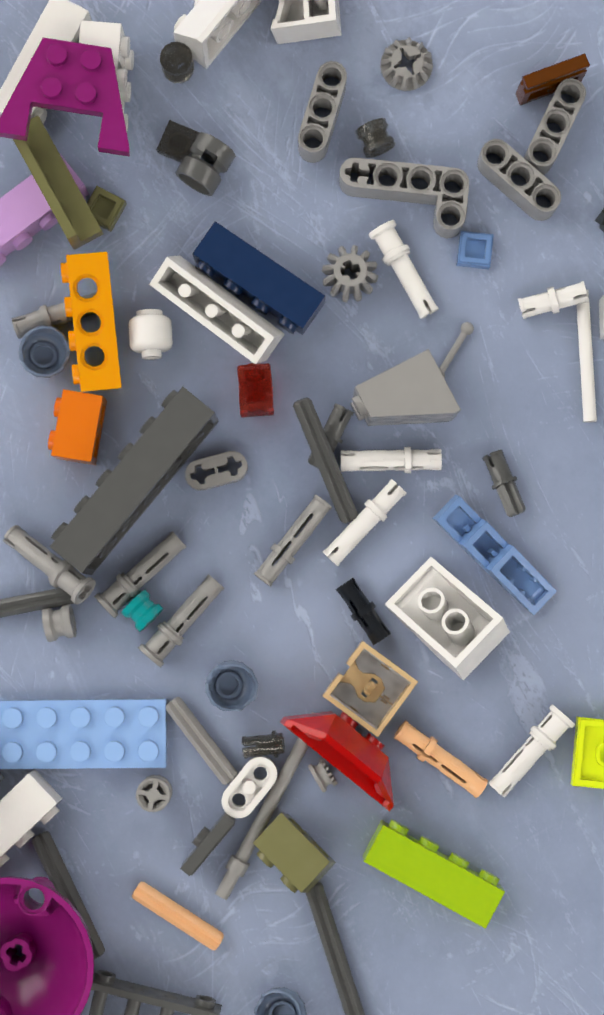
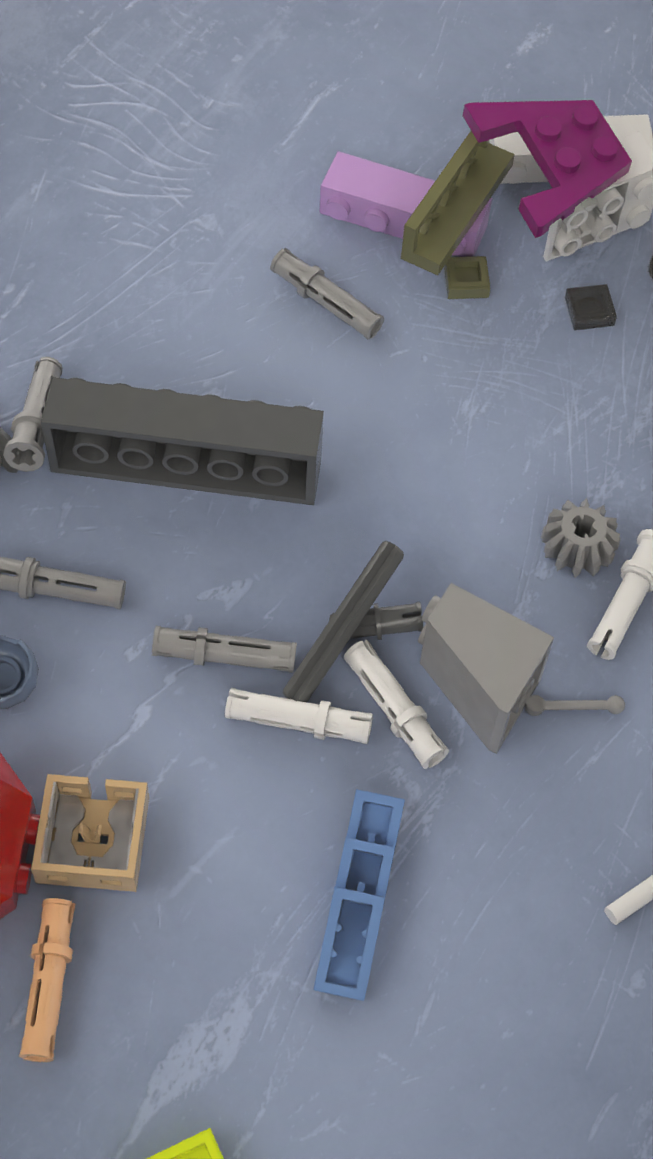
camera: 55 degrees right, 25 degrees down
(44, 351) = (272, 292): sand blue hair -> none
(77, 427) = (213, 363): orange brick -> none
(107, 373) = (330, 334): light orange brick -> none
(128, 584) = (58, 511): light grey pin -> none
(142, 610) = (38, 533): teal wheel -> none
(150, 333) = (363, 378): white head -> none
(200, 174) = (587, 334): dark grey wheel -> none
(215, 462) = (249, 533): light grey beam -> none
(216, 309) = (437, 425): white brick -> none
(255, 390) = (376, 514): clear red bracket -> none
(258, 278) = (504, 452): dark blue brick -> none
(363, 611) = (187, 777): black pin -> none
(448, 617) = (239, 882): white slope -> none
(504, 483) = (459, 850): dark grey axle -> none
(541, 739) = (149, 1096): white pin -> none

